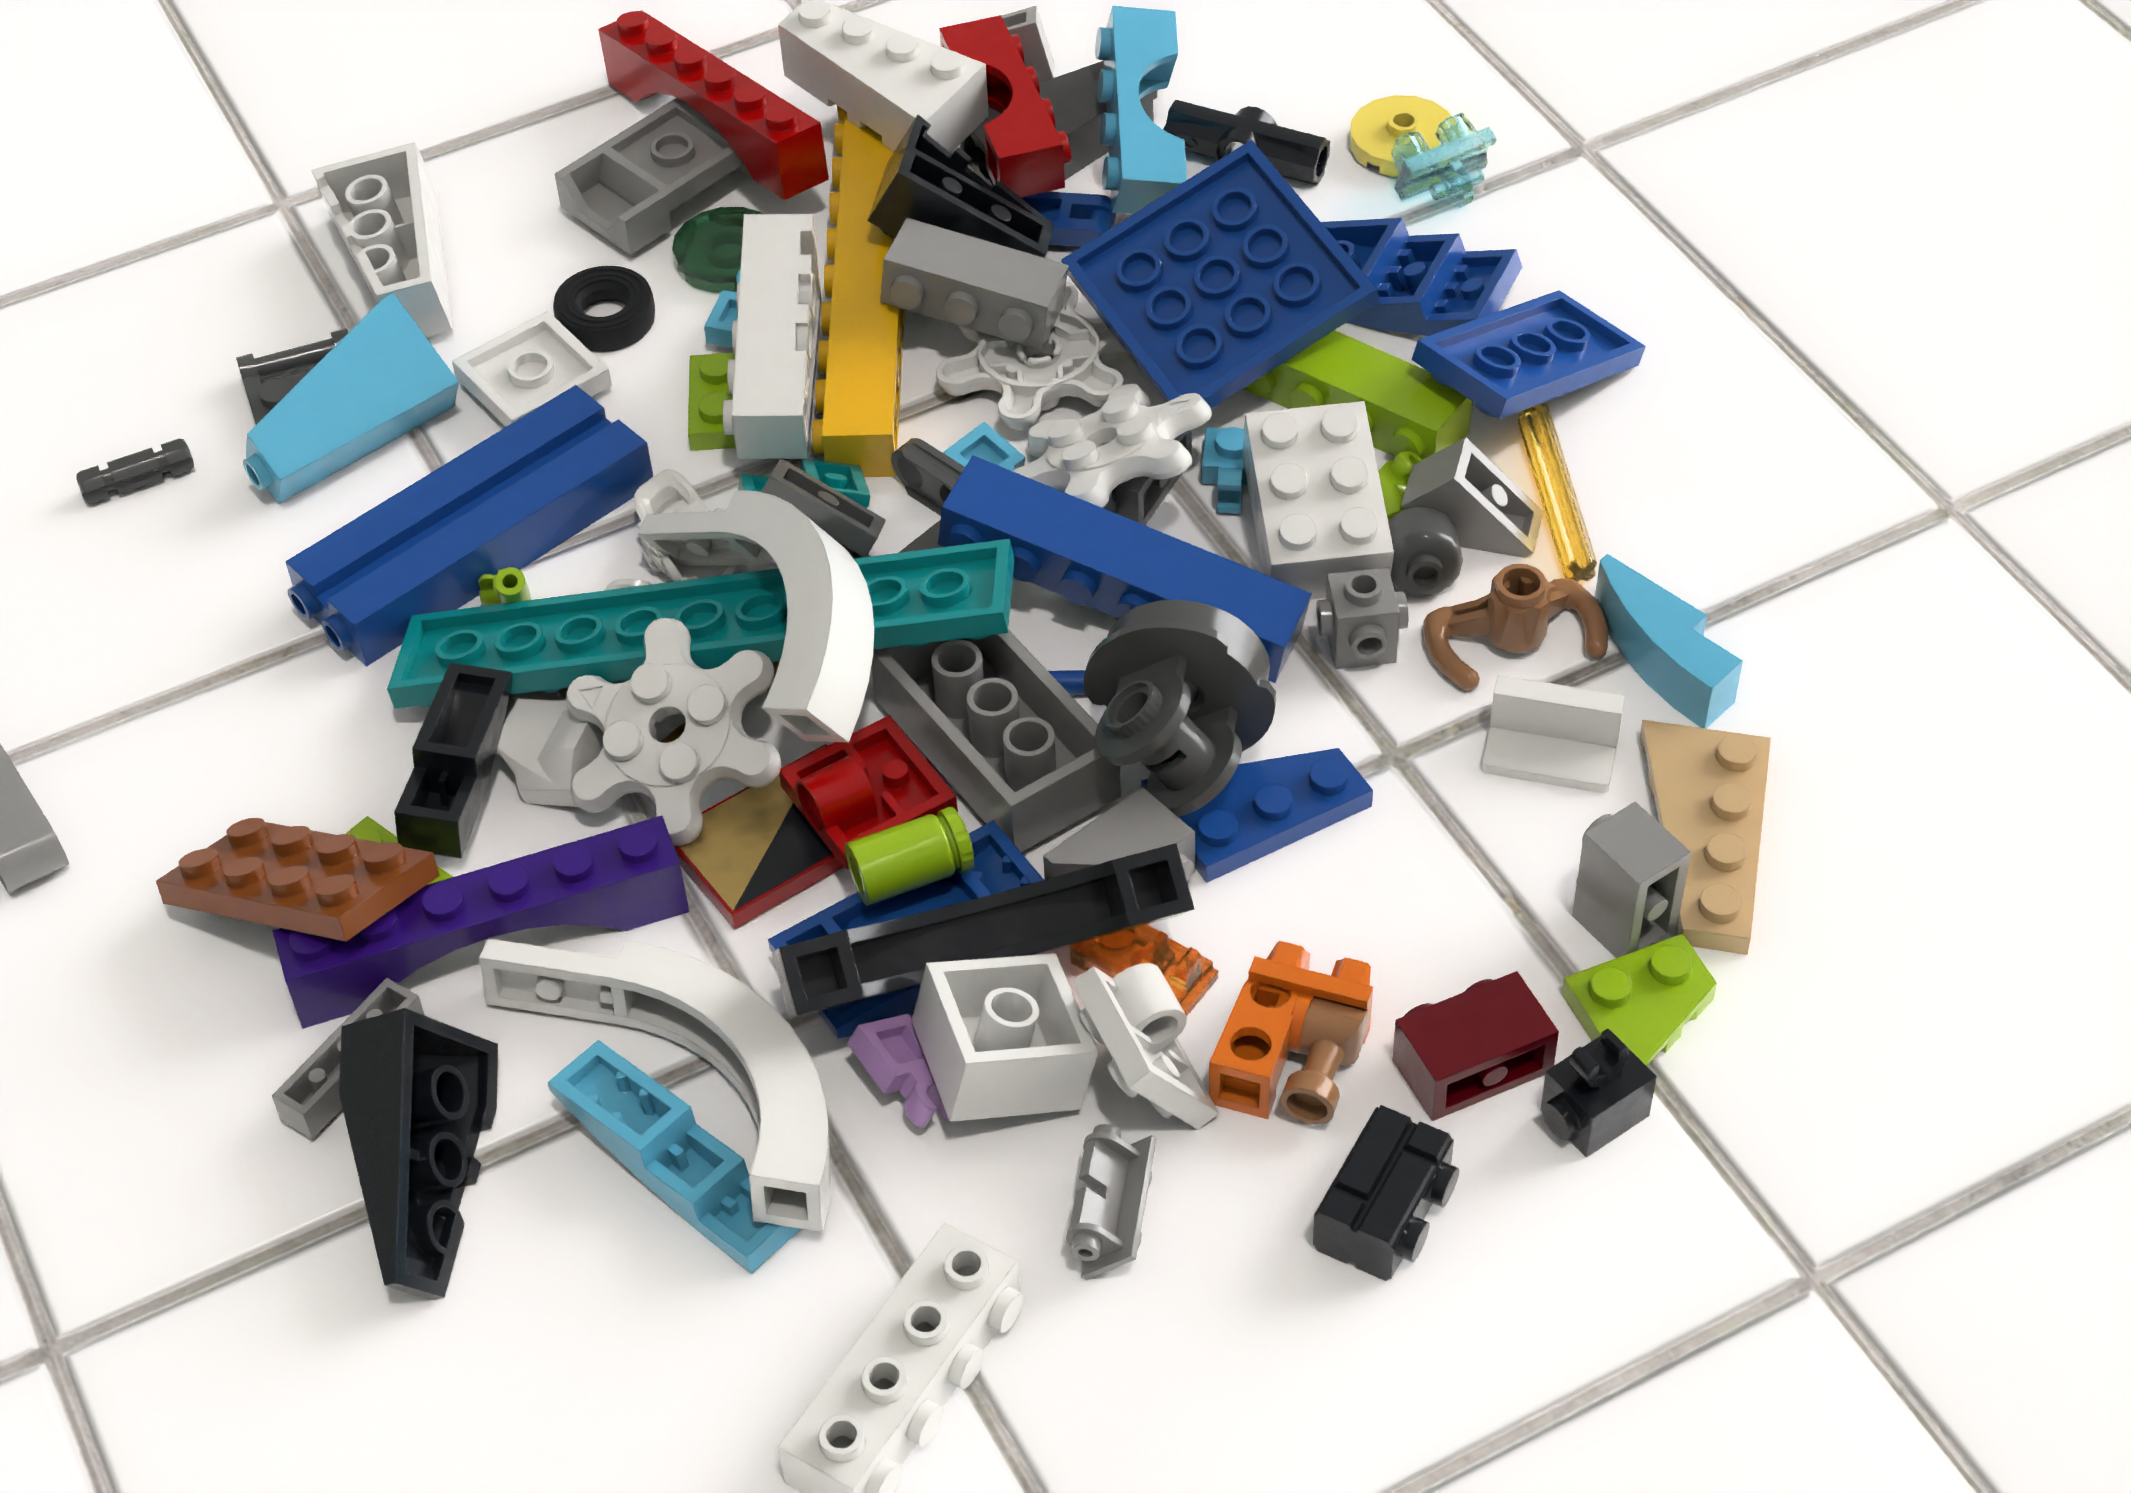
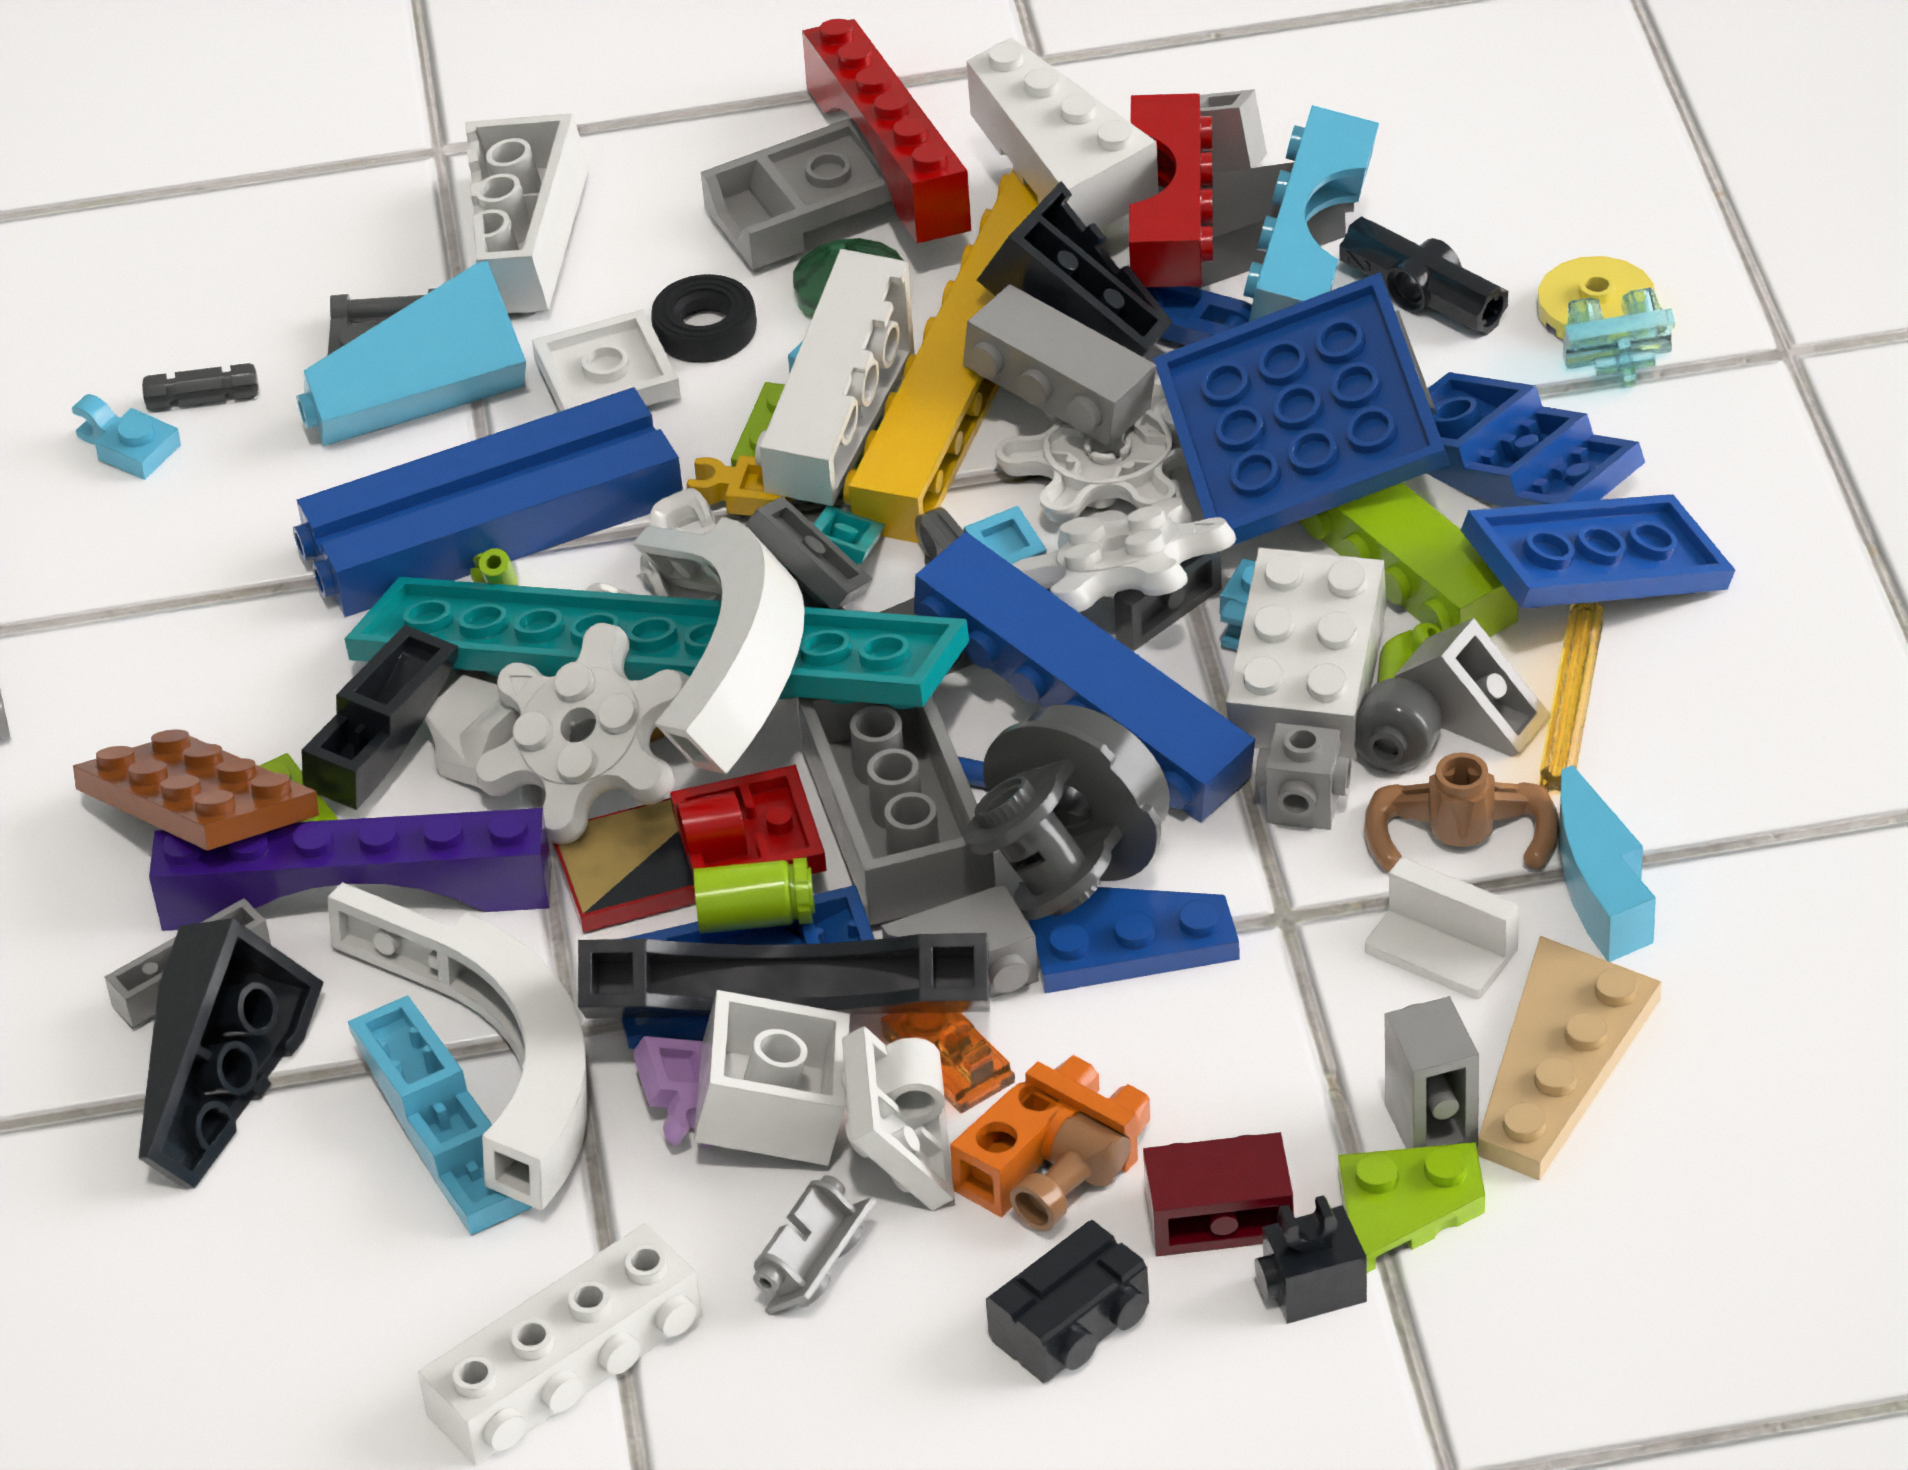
camera: 20 degrees right, 5 degrees down
(83, 540) = (130, 443): none -> medium azure plate
(711, 457) = (737, 486): none -> yellow plate

